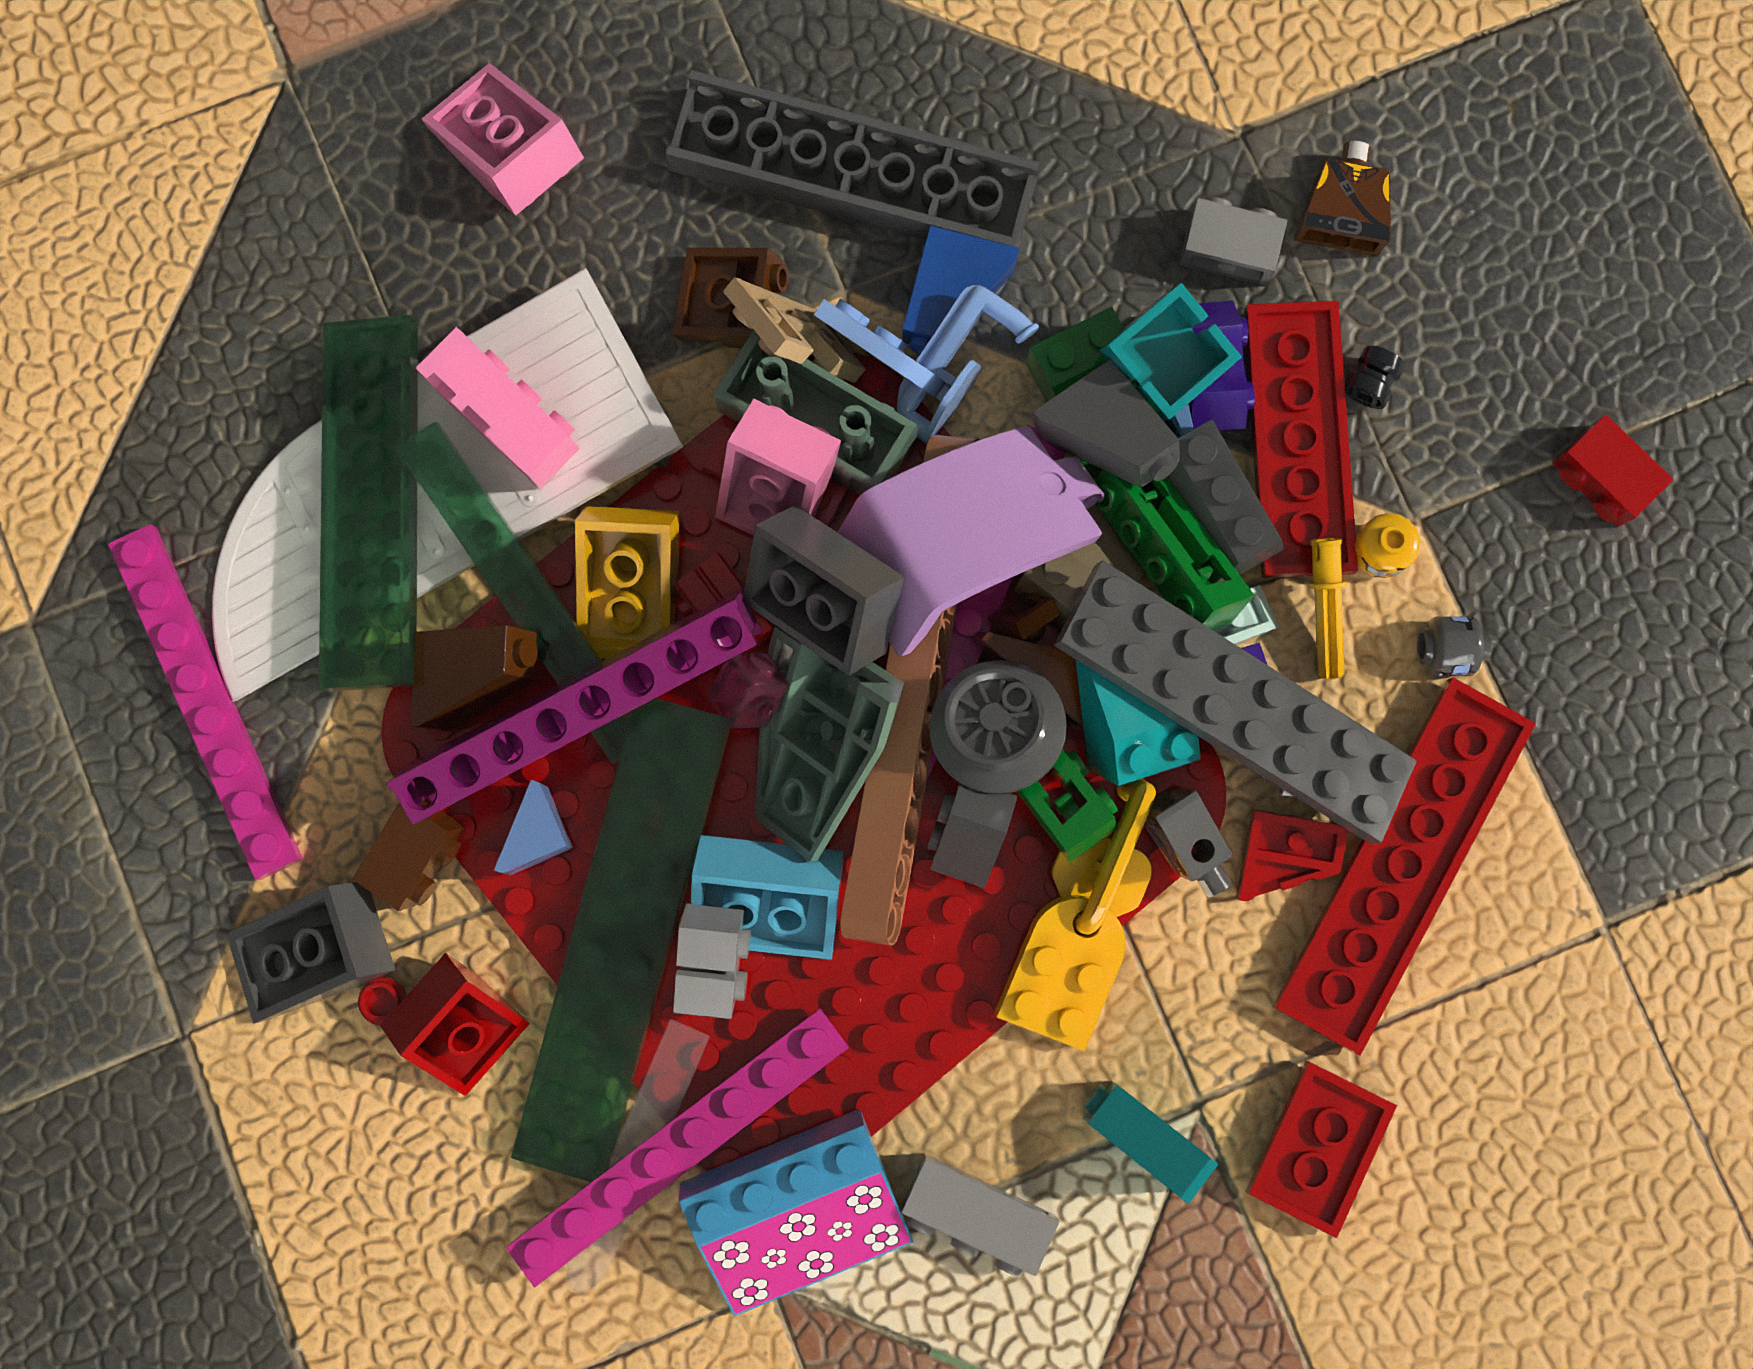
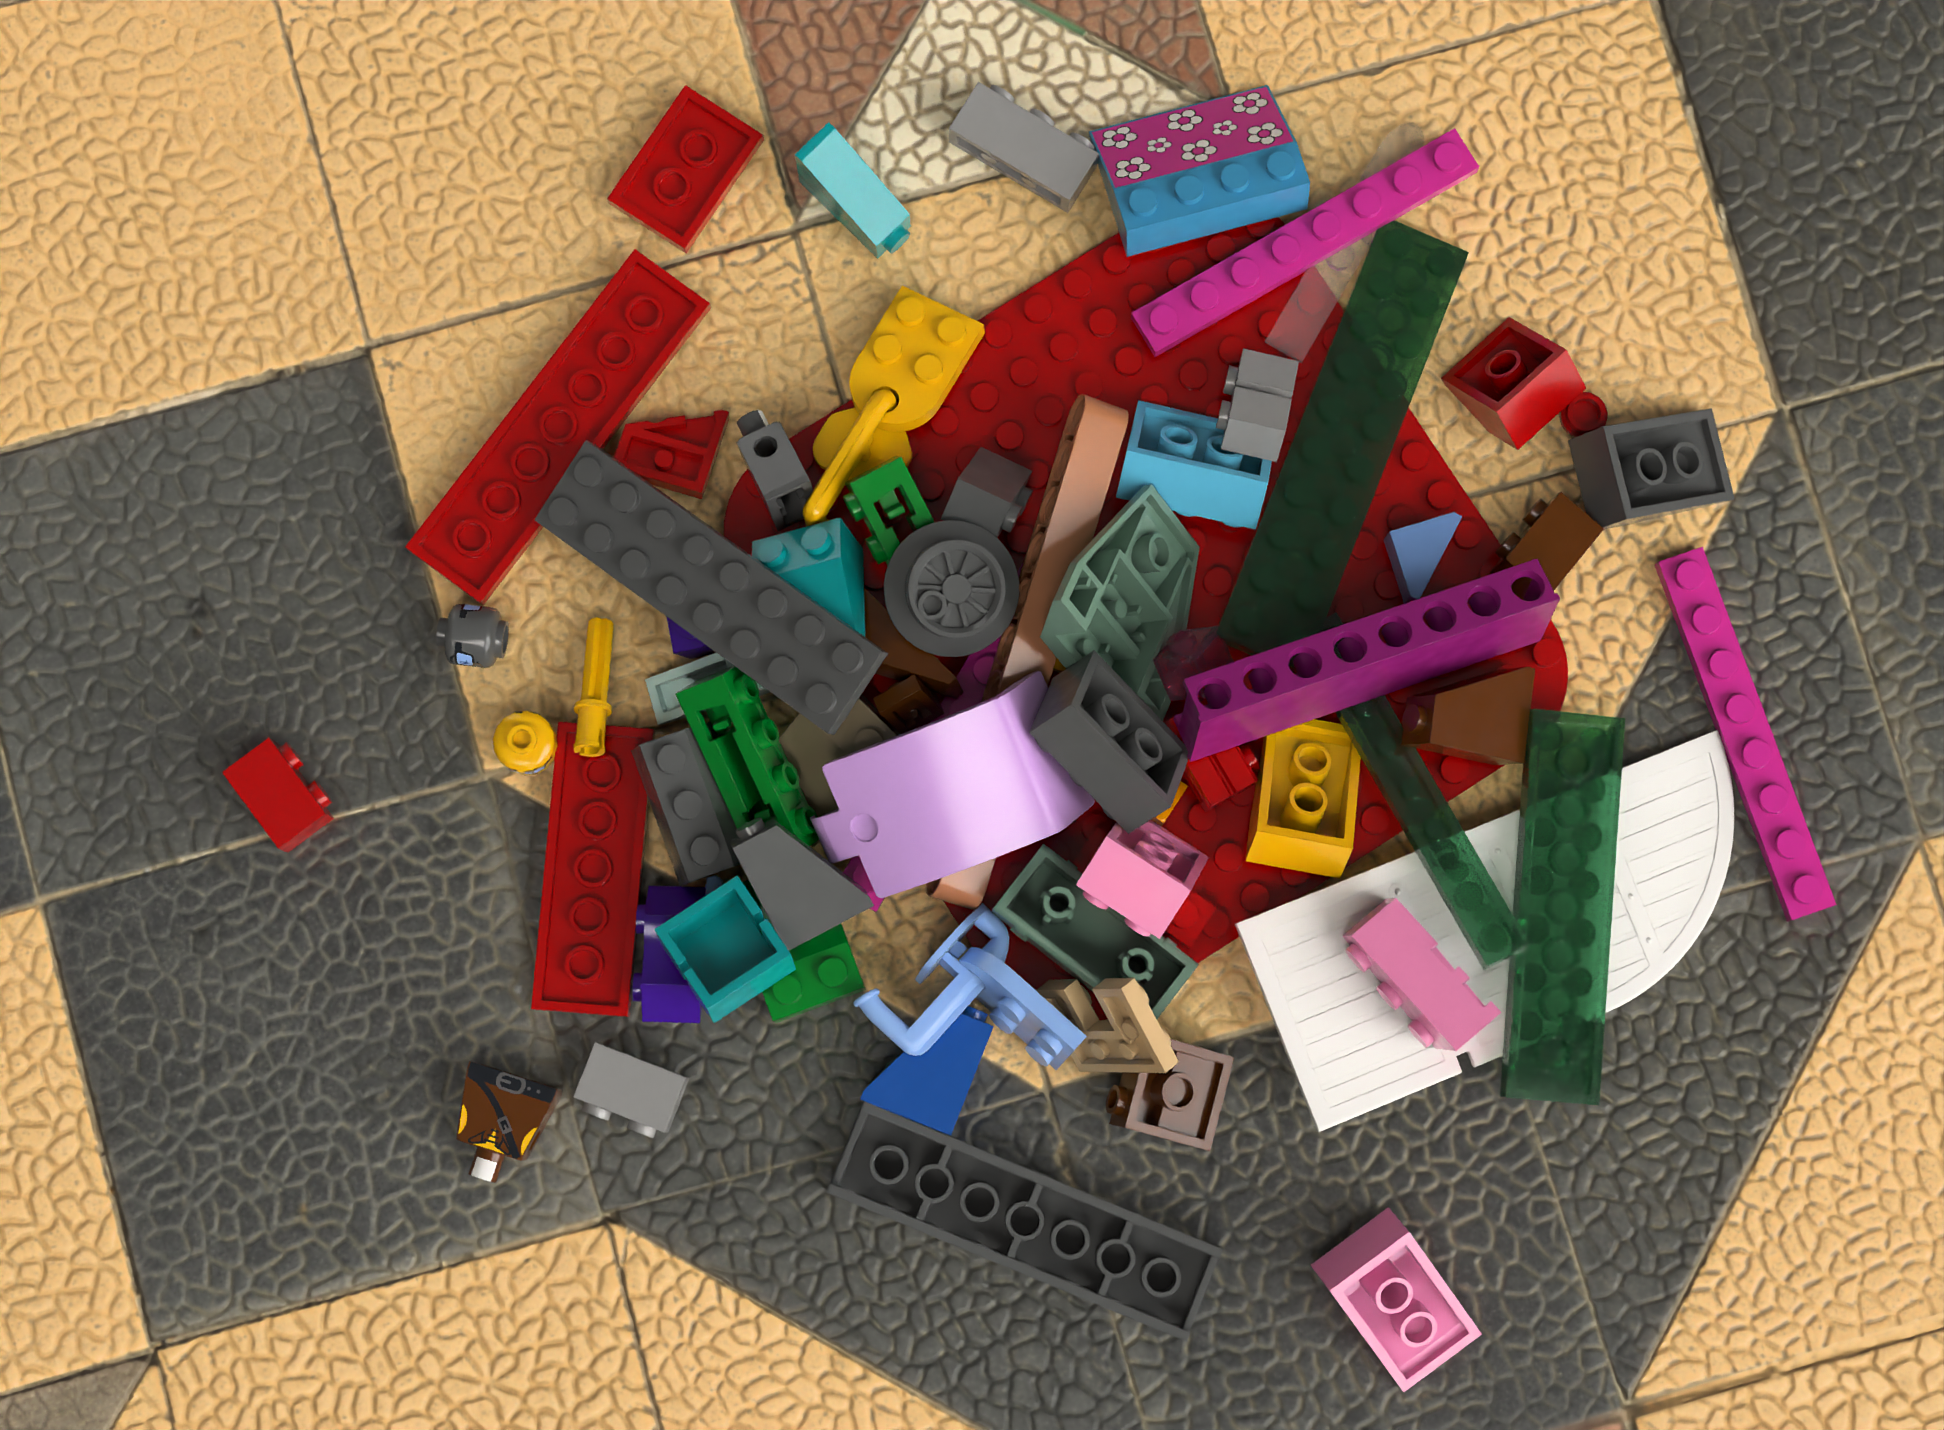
camera: 175 degrees left, 0 degrees up
(1374, 377) = (512, 914): black wheel -> none

